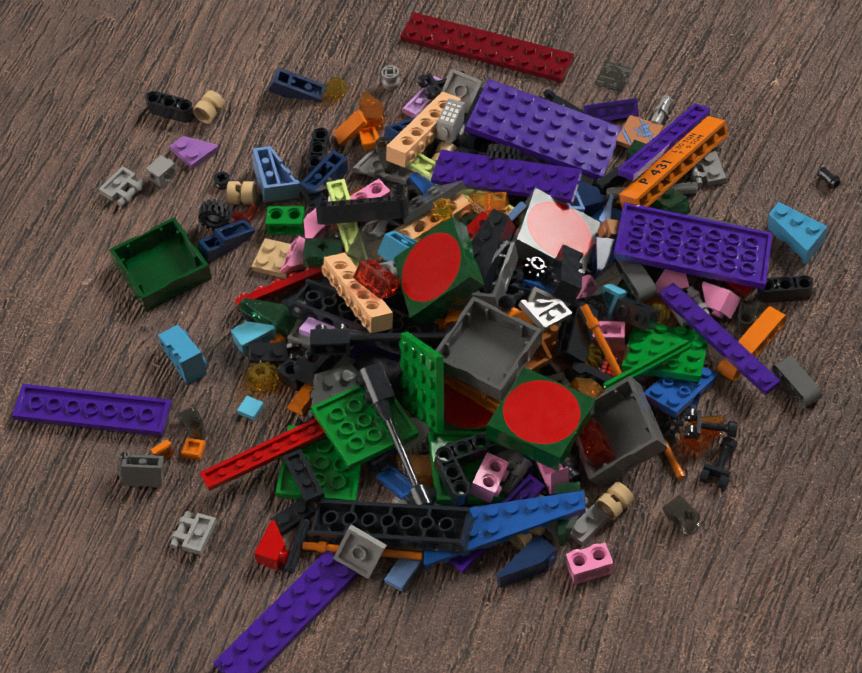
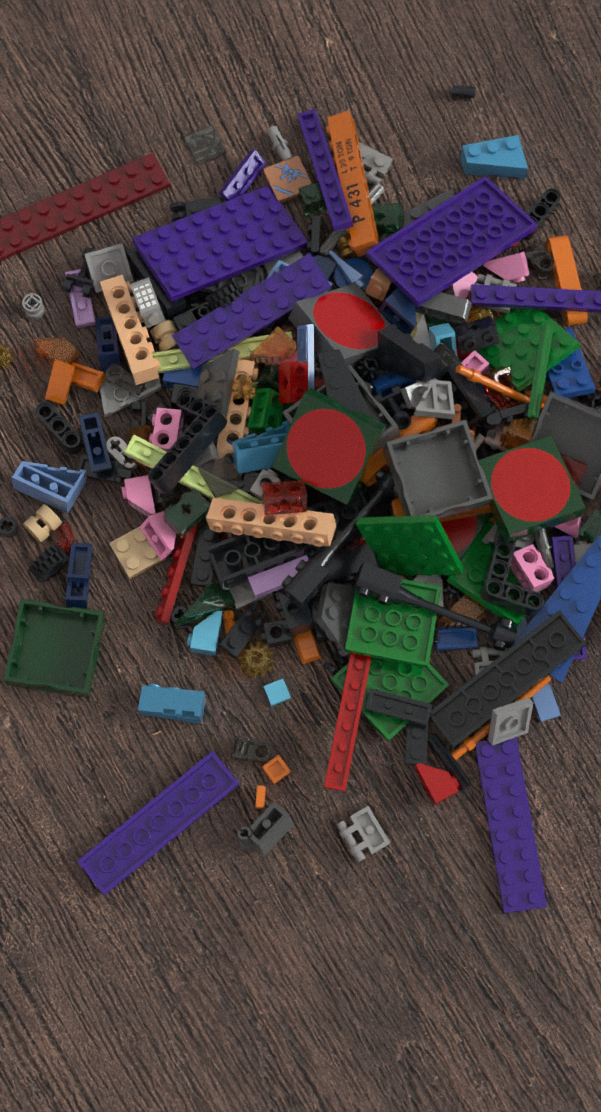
camera: 60 degrees left, 20 degrees up
(285, 220) = (112, 515): green brick -> none

